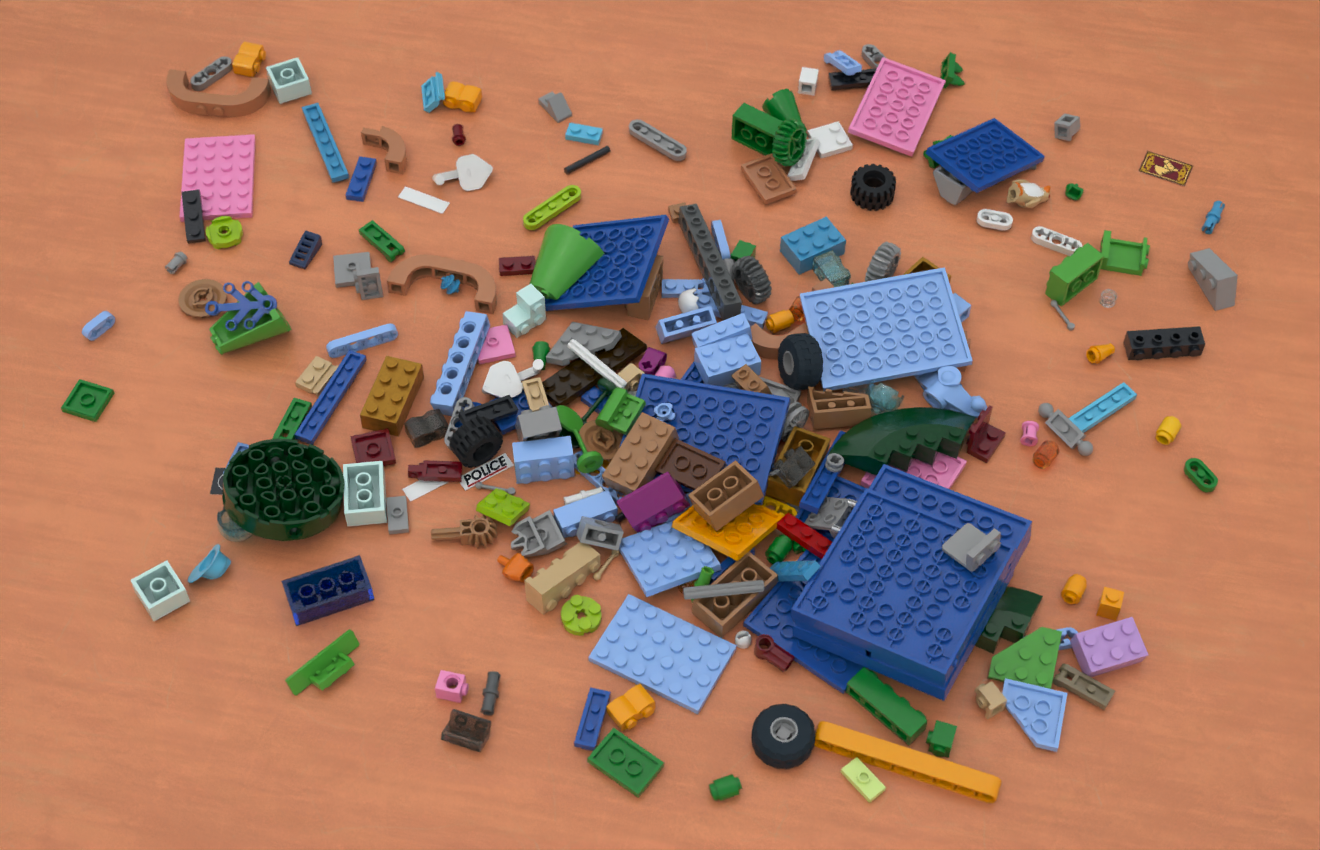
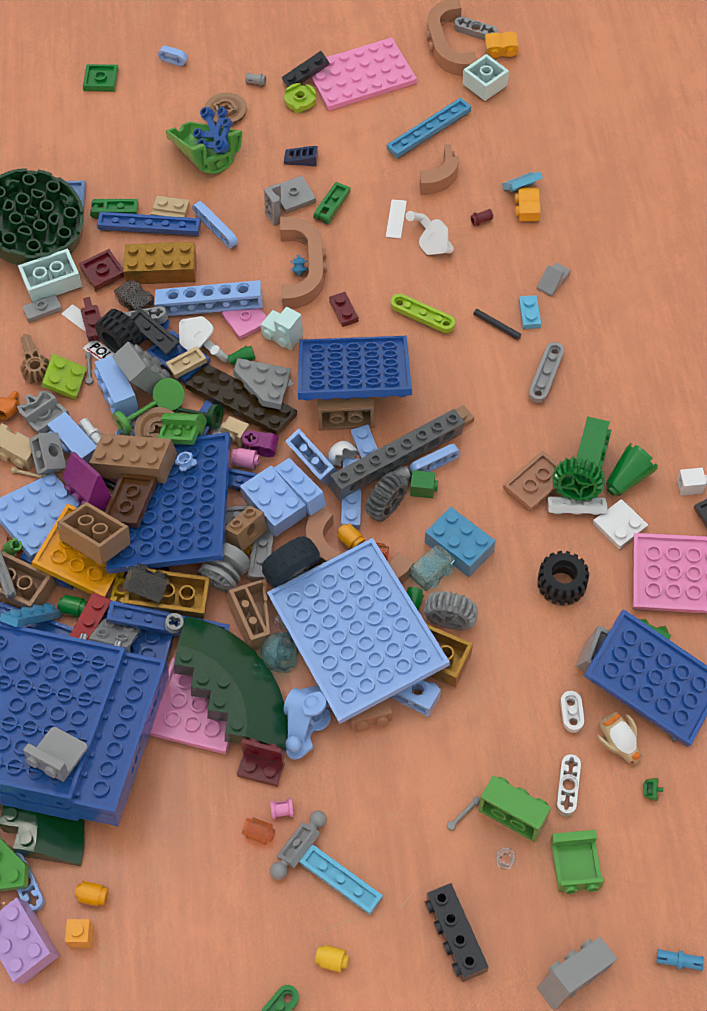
camera: 75 degrees right, 5 degrees up
(361, 179) = (399, 166): blue plate -> none
(562, 260) = (344, 333): bright green cone -> none
(596, 364) = (232, 396): white axle -> none
(1097, 353) = (419, 862): light orange cone -> none

